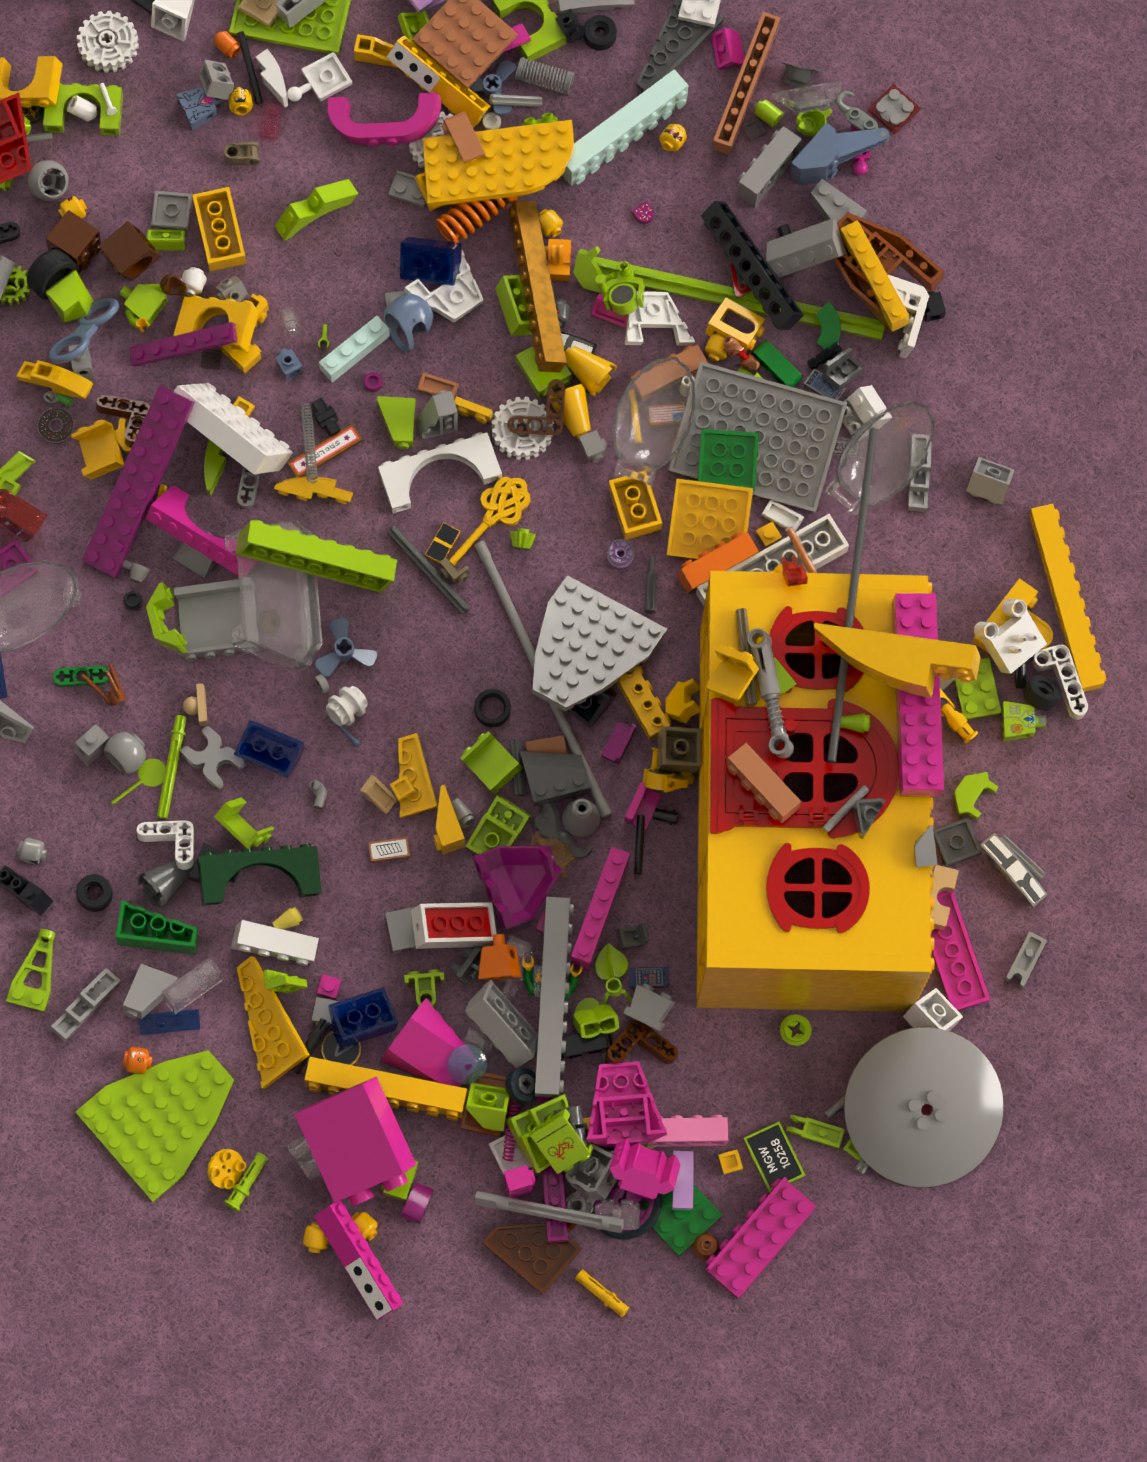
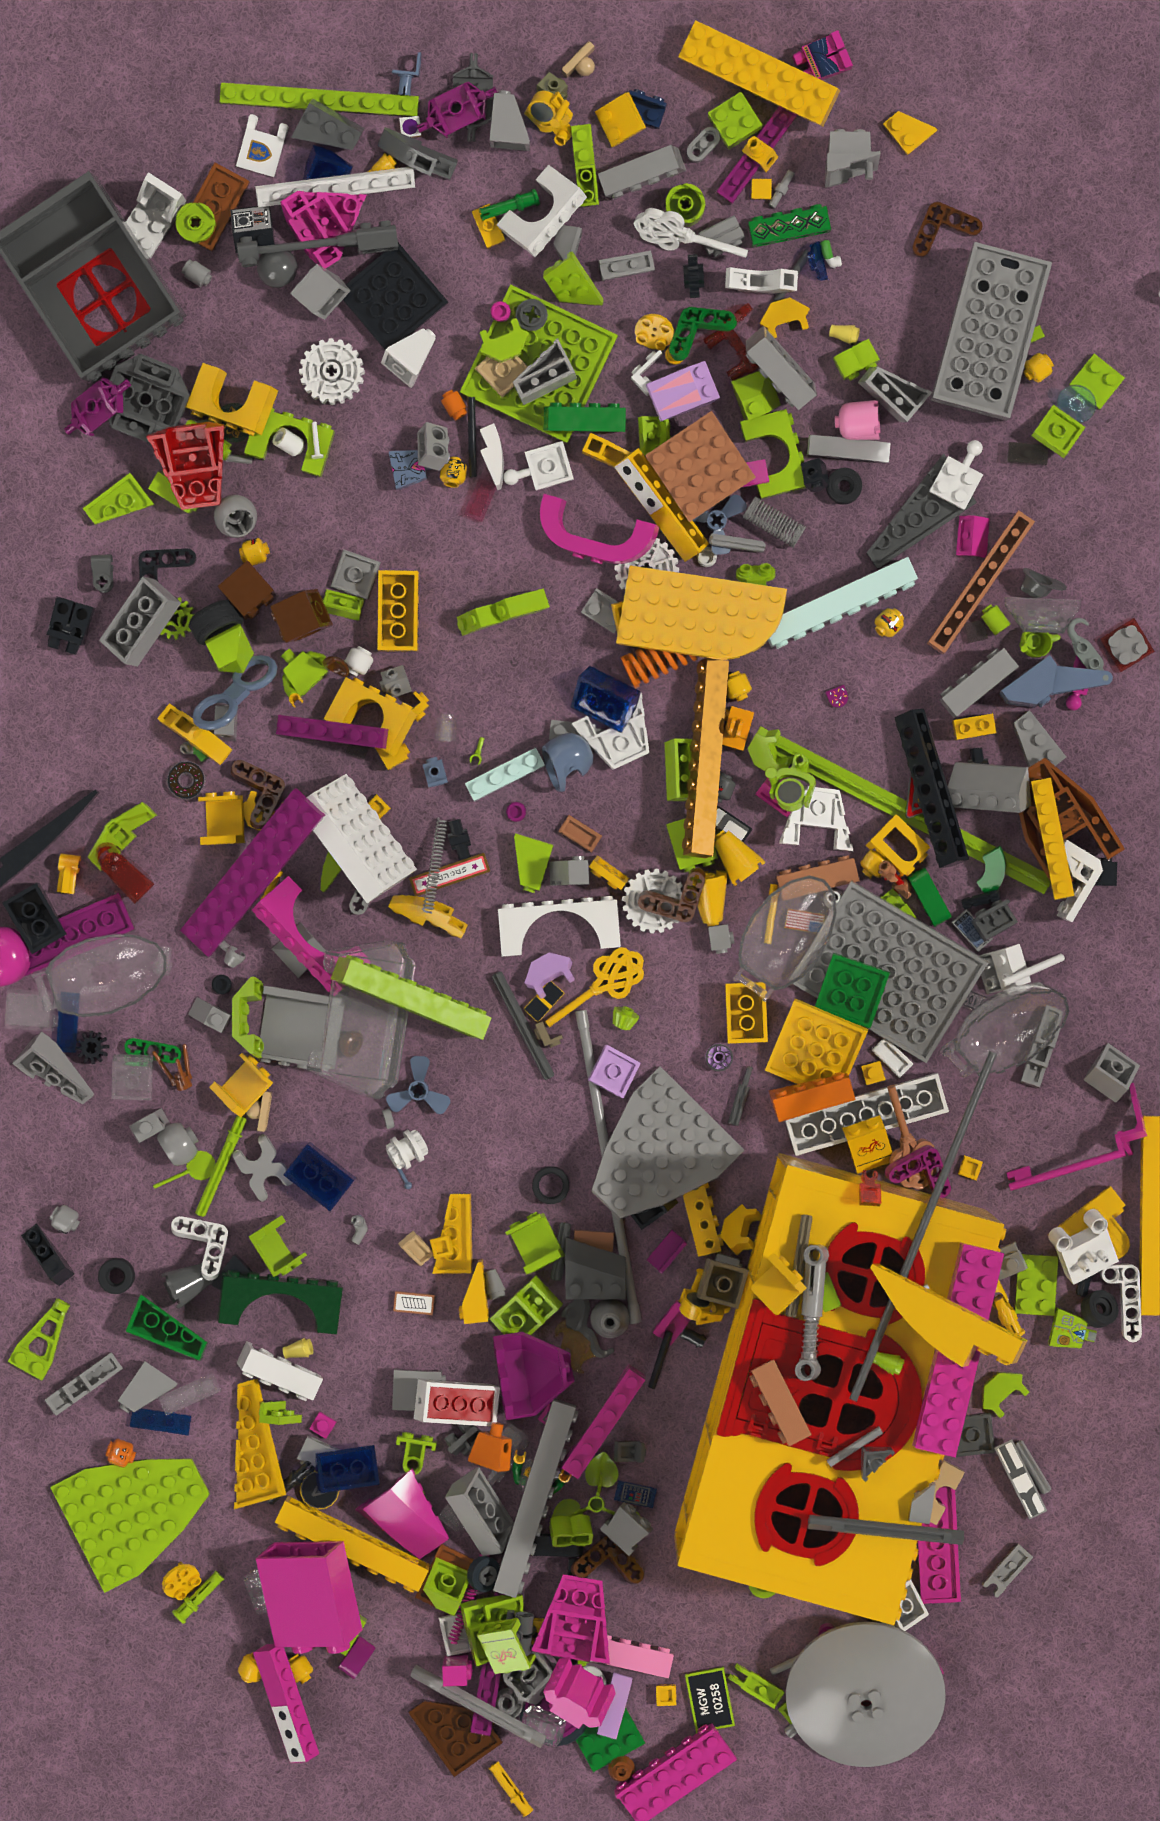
camera: 15 degrees right, 15 degrees up
(21, 693) = (85, 1045): none -> black gear
(67, 701) = (132, 1077): none -> clear brick
(129, 629) = (210, 1015): none -> light grey slope
(177, 684) = (243, 1086): none -> yellow panel
(243, 153) = (443, 531): dark tan piece -> none
(346, 26) = (584, 418): none -> green brick
(438, 512) = (547, 969): none -> lavender piece
(463, 136) = (671, 578): nougat door -> none
(467, 1055) = (437, 1535): clear light blue dish -> none
(525, 588) = (614, 1071): none -> lavender plate
(775, 207) = (974, 726): none -> yellow brick
(890, 402) = (1032, 970): none -> white bar
(896, 880) = (884, 1529): none -> dark grey piece
(1016, 529) = (1023, 1176): none -> dark pink piece

